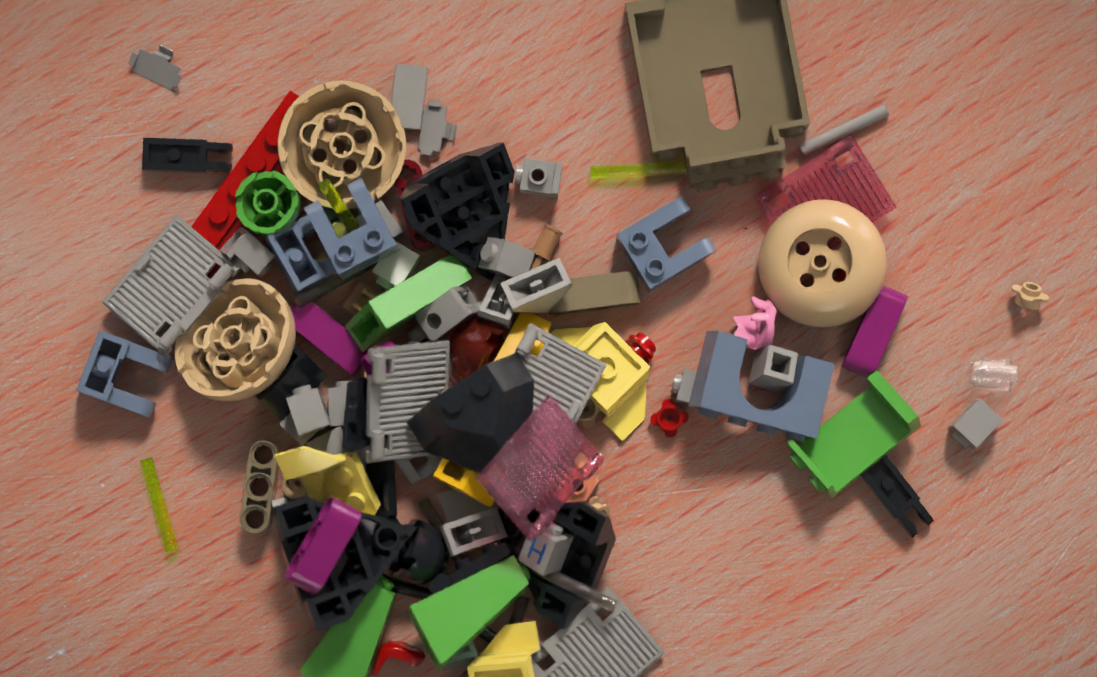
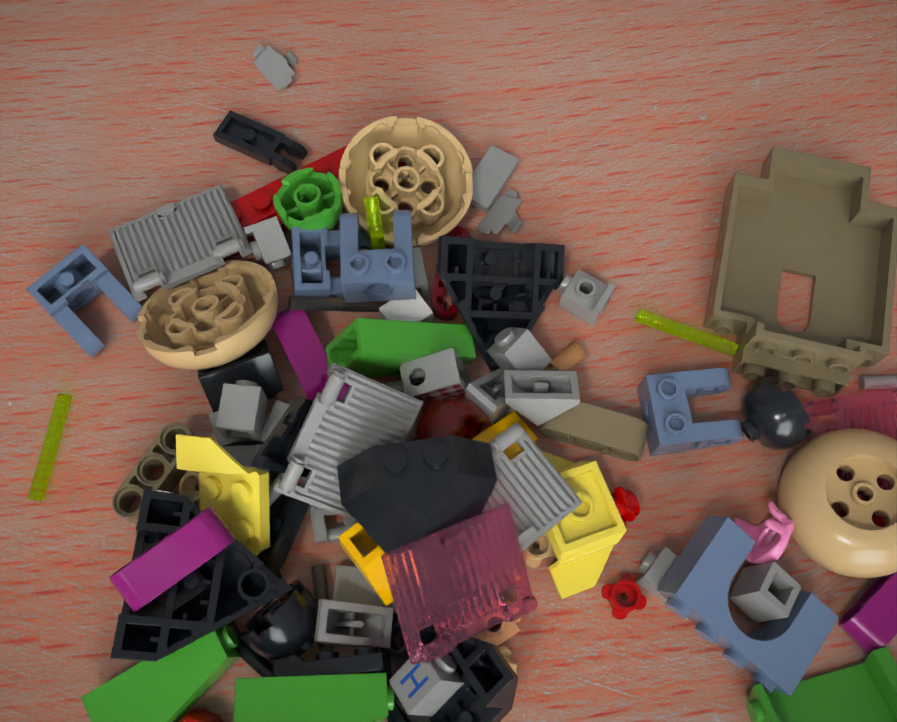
camera: 20 degrees right, 15 degrees down
(731, 222) = (773, 416): none -> black cylinder

